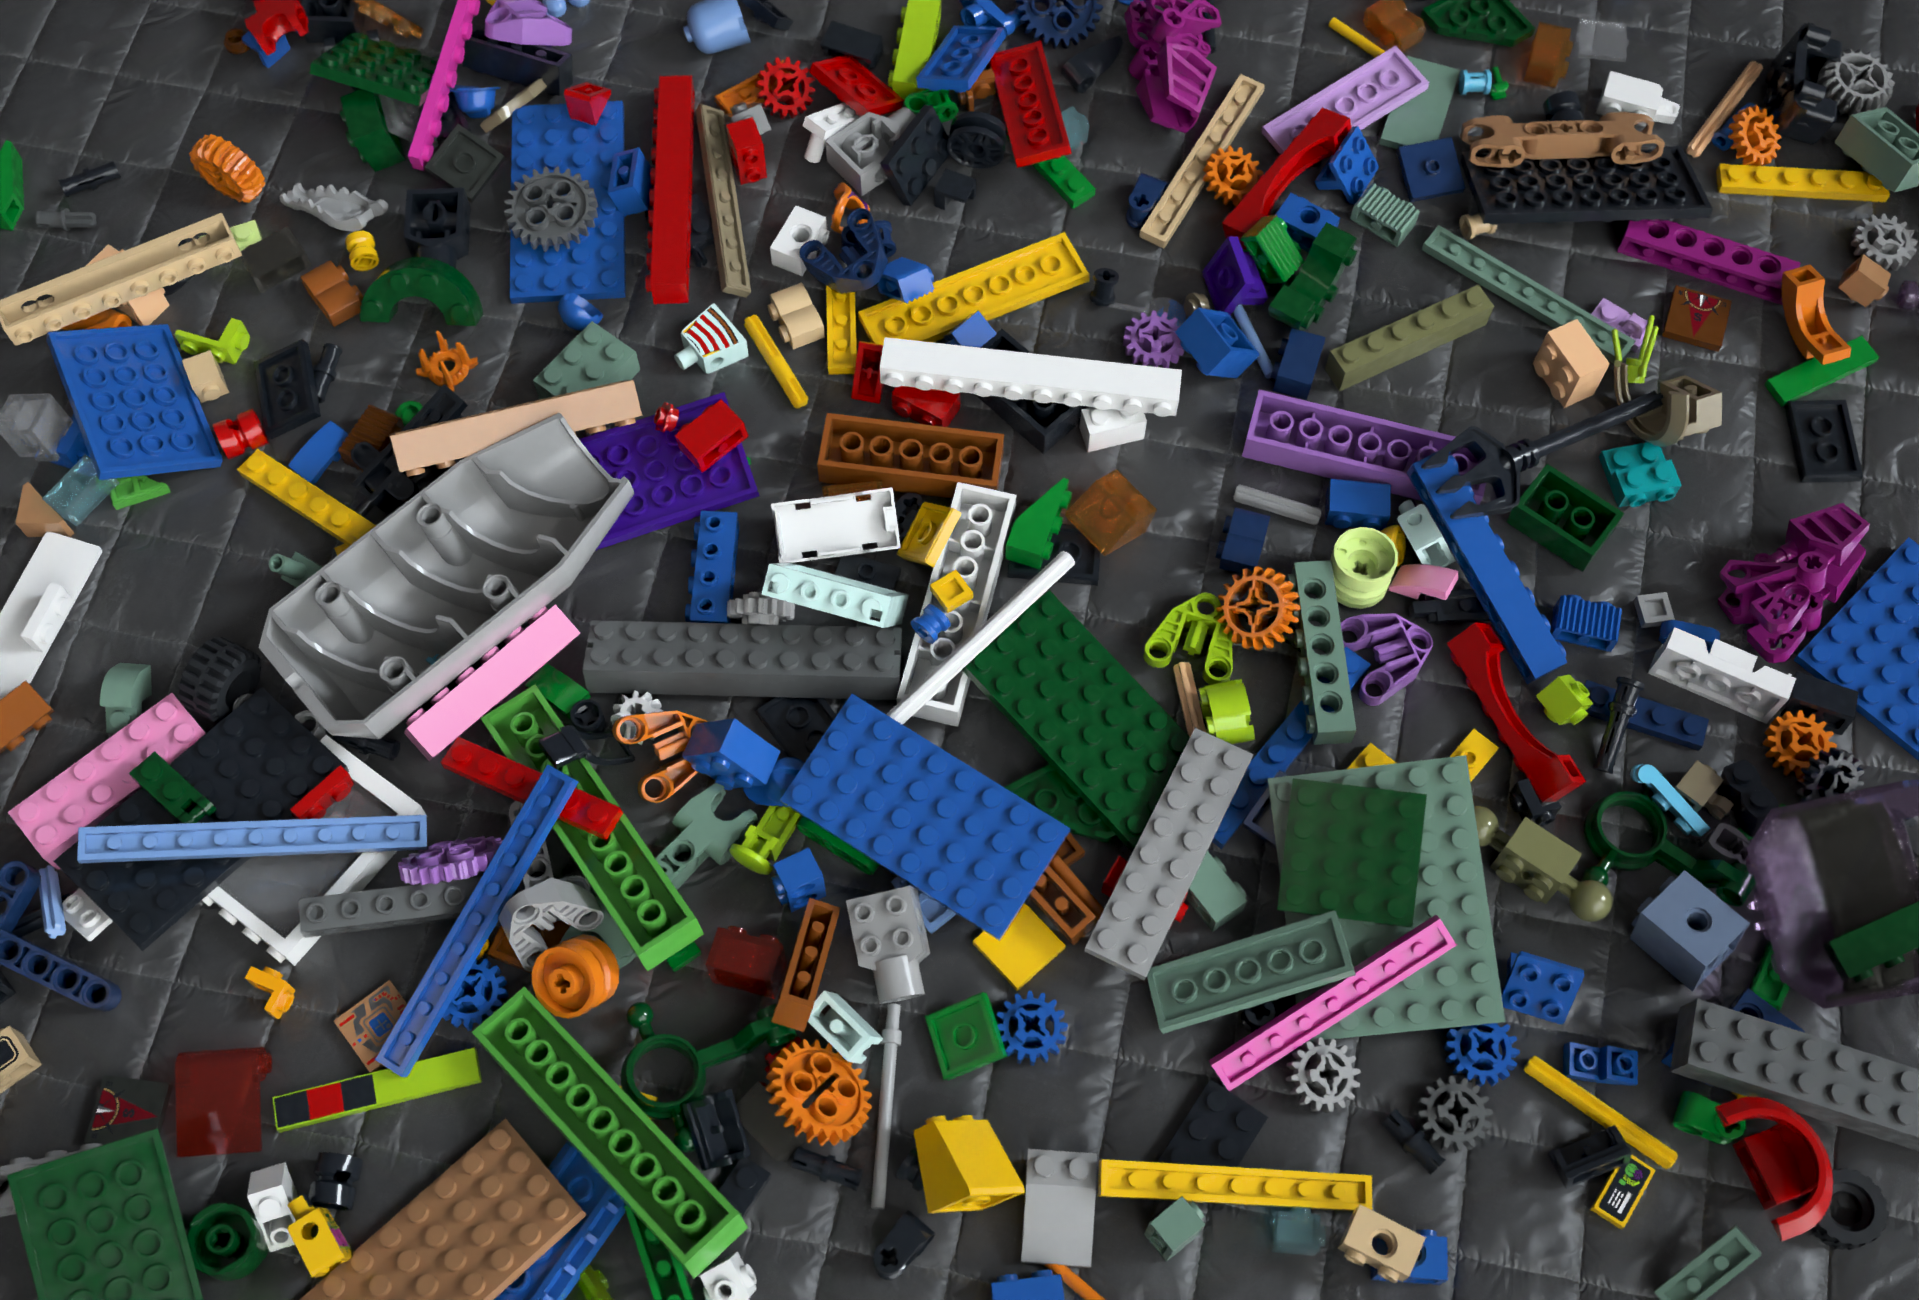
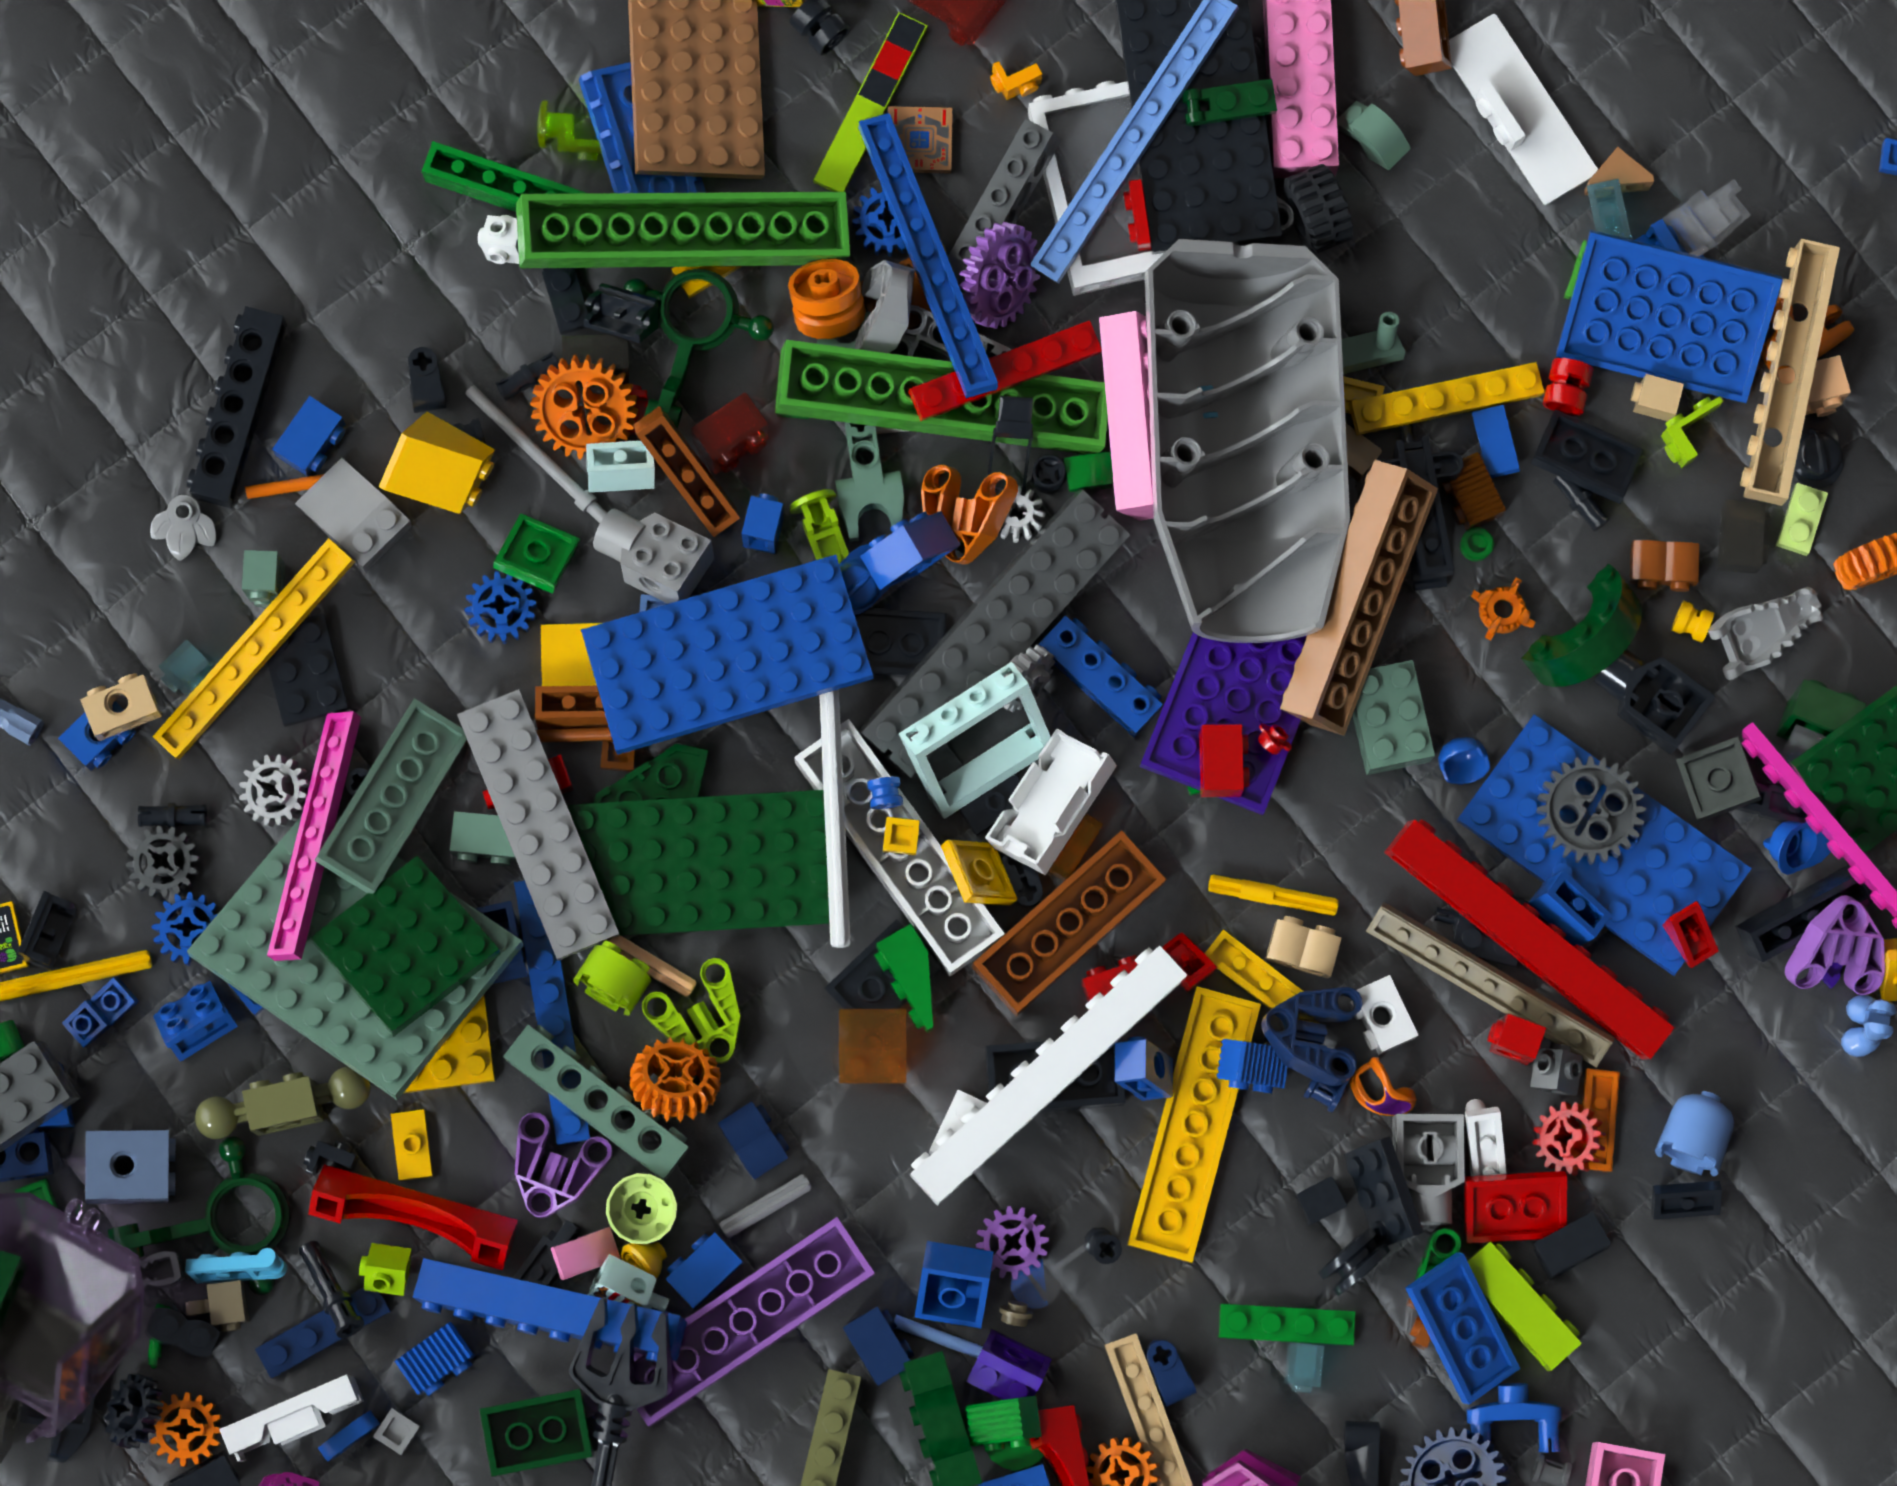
camera: 125 degrees right, 15 degrees up
(518, 101) = (1756, 860): dark tan tile -> none
(711, 342) = (1337, 851): light aqua torso -> none
(1029, 104) = (1355, 1346): red plate -> none

